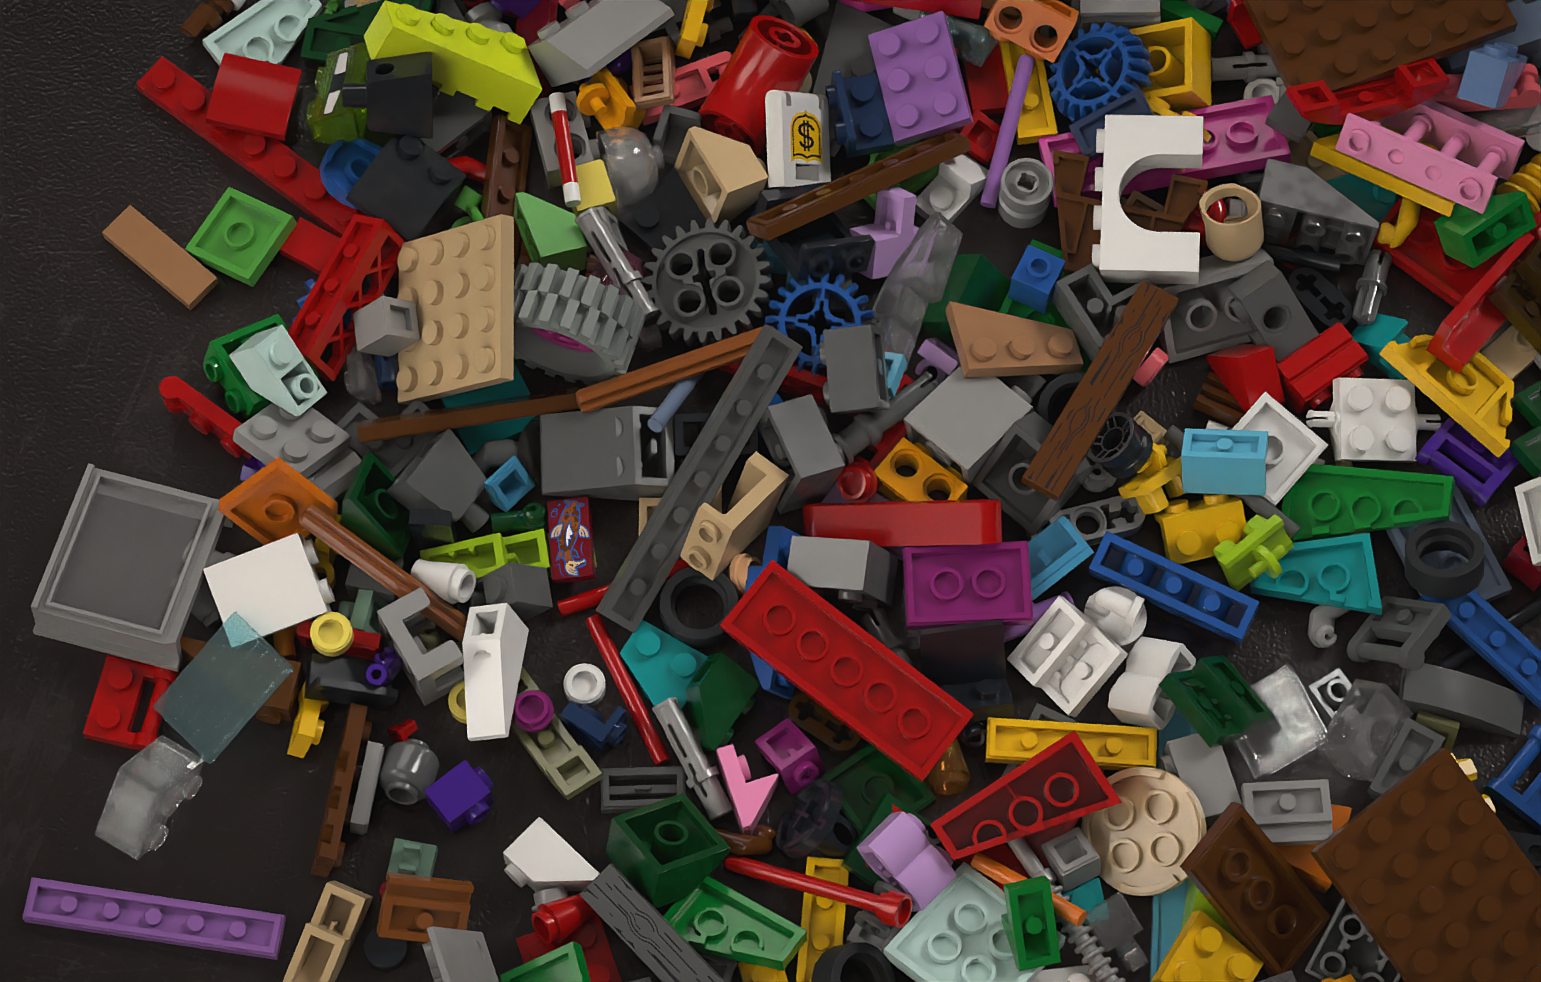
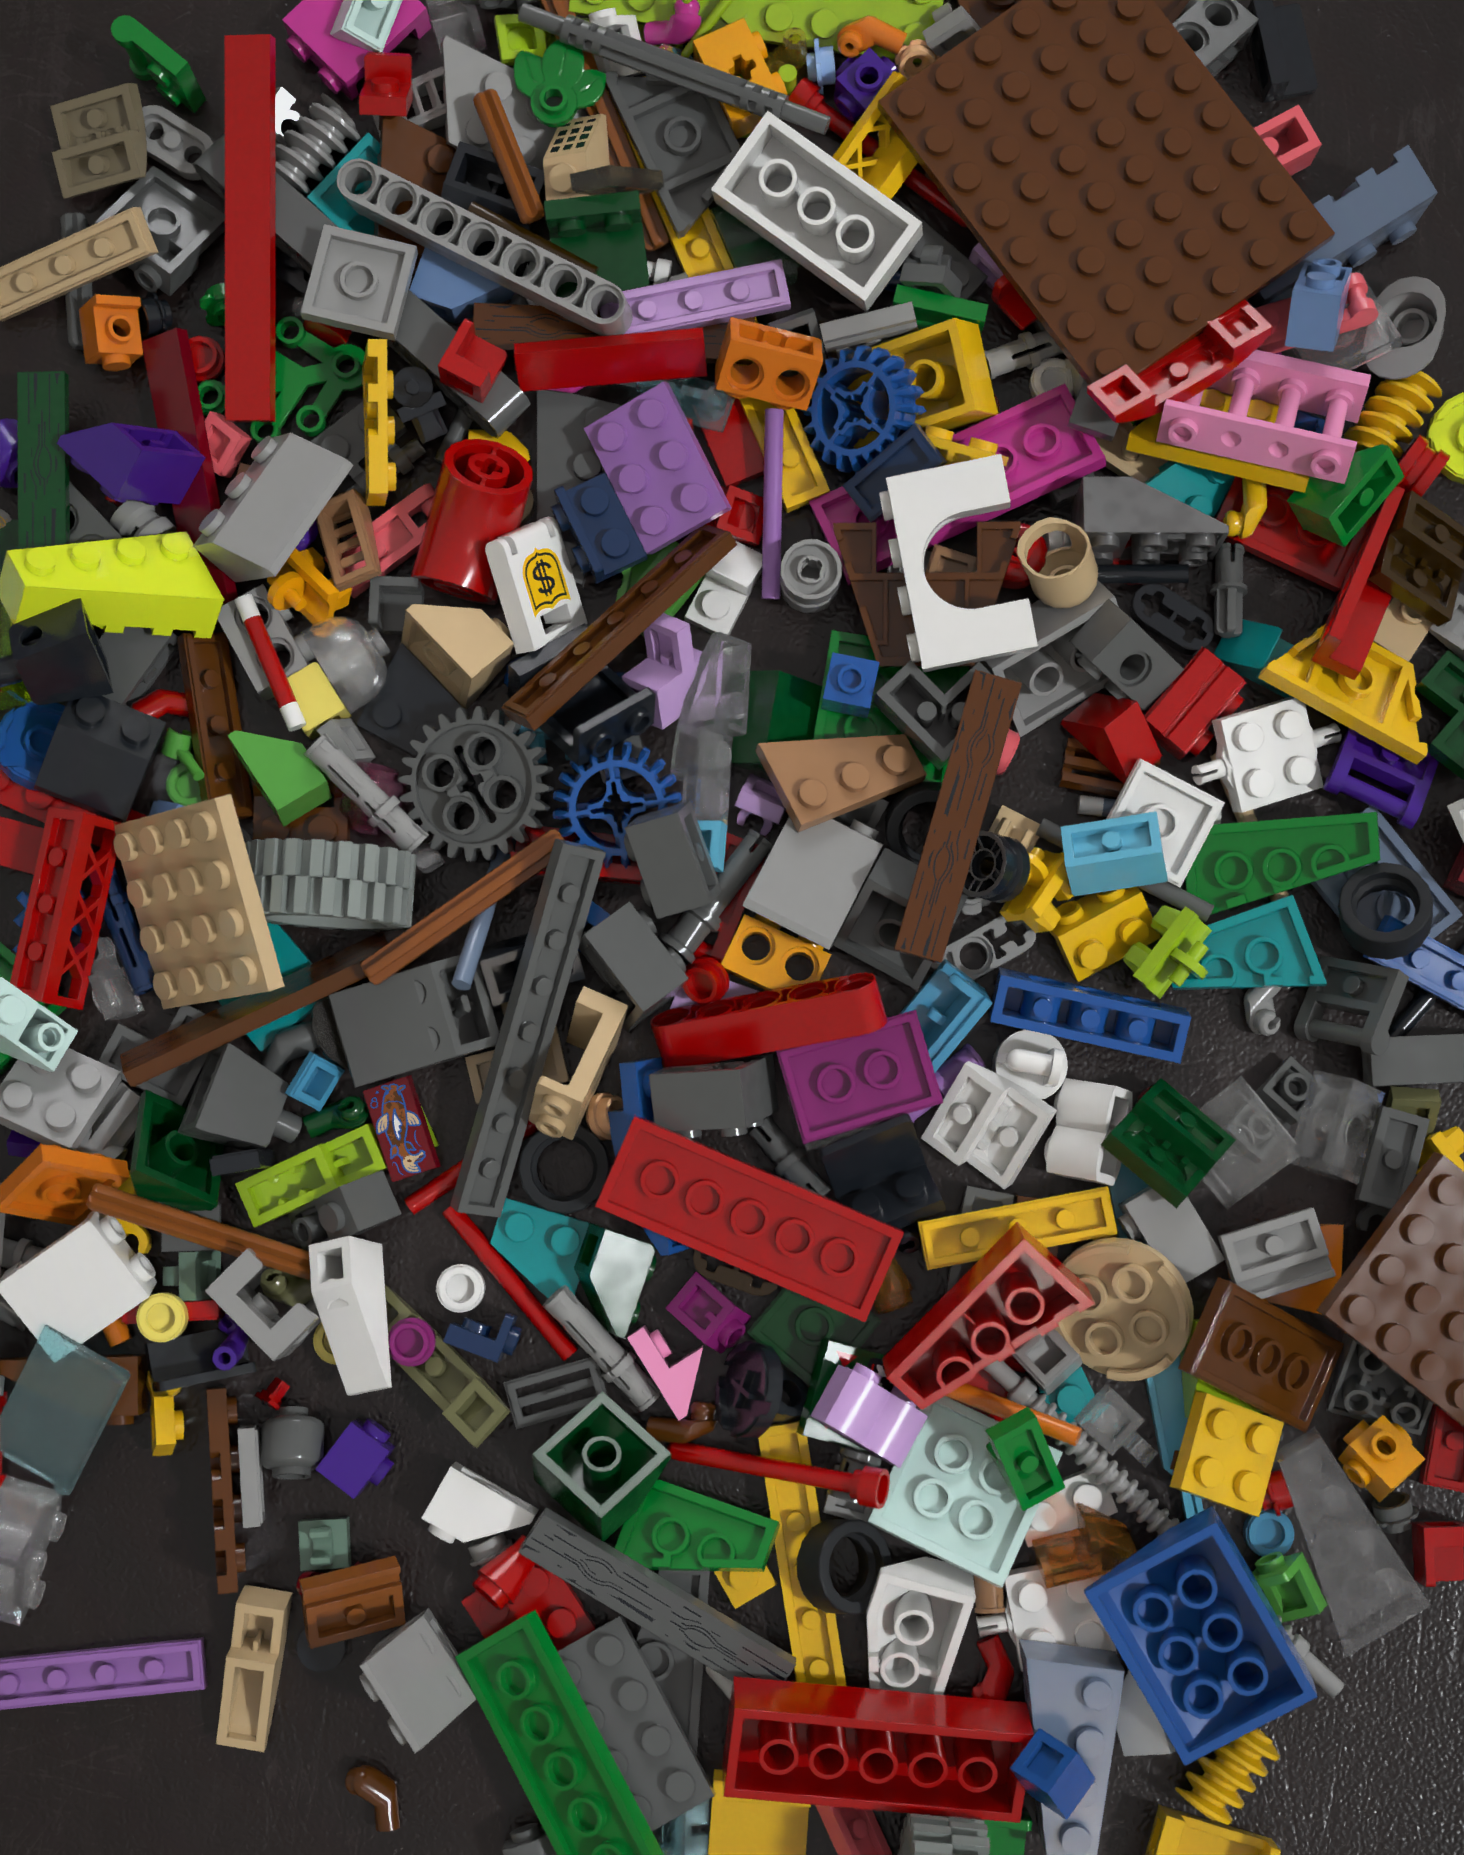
camera: 10 degrees left, 15 degrees up
(386, 326) = (123, 935): light grey panel -> none
(447, 580) = (274, 1219): white cone -> none

